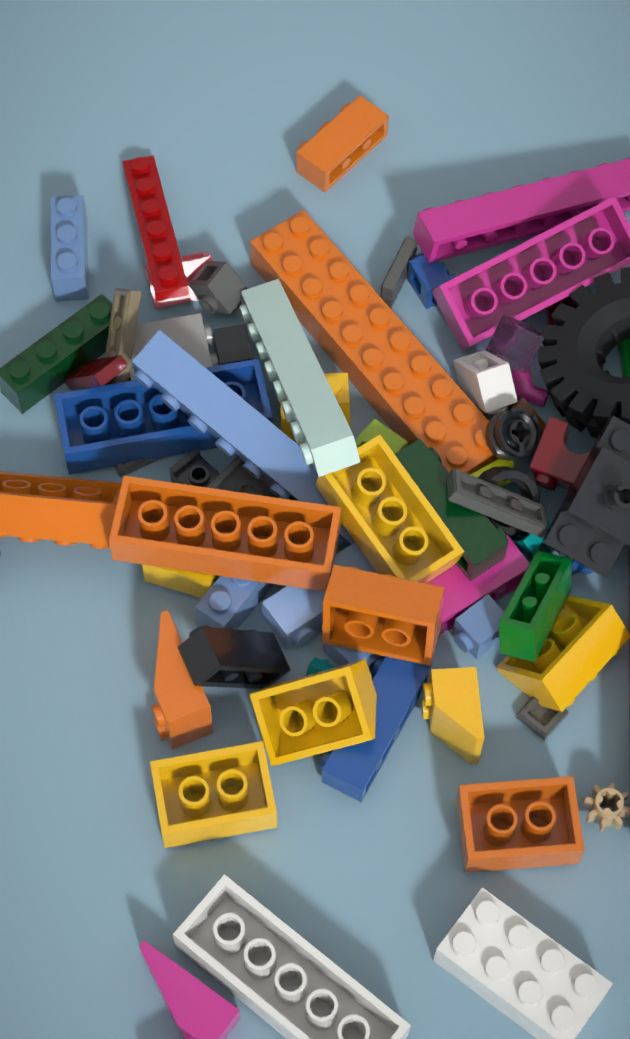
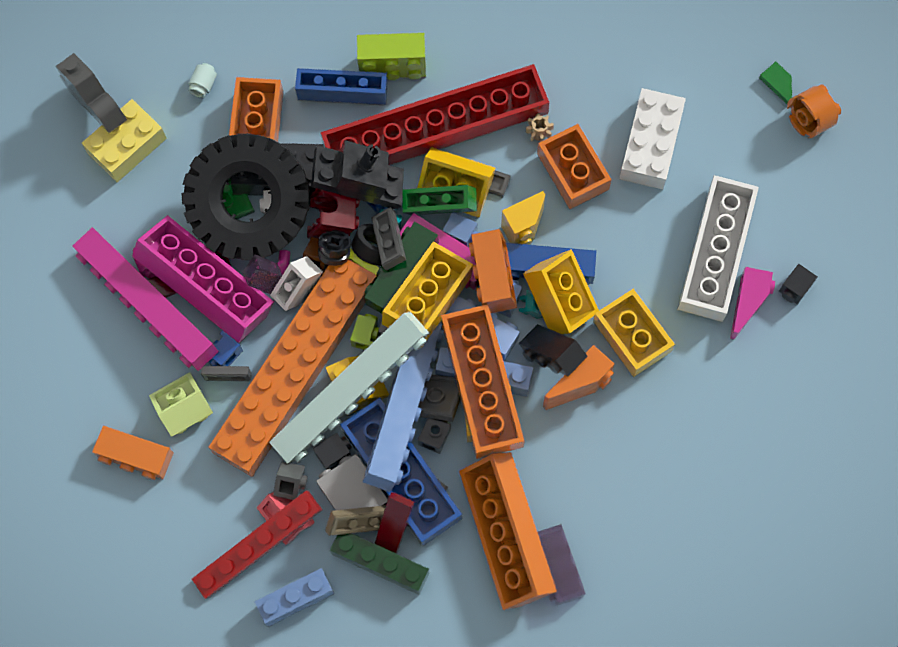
camera: 110 degrees left, 10 degrees up
(378, 208) = (180, 404): none -> yellowish green slope

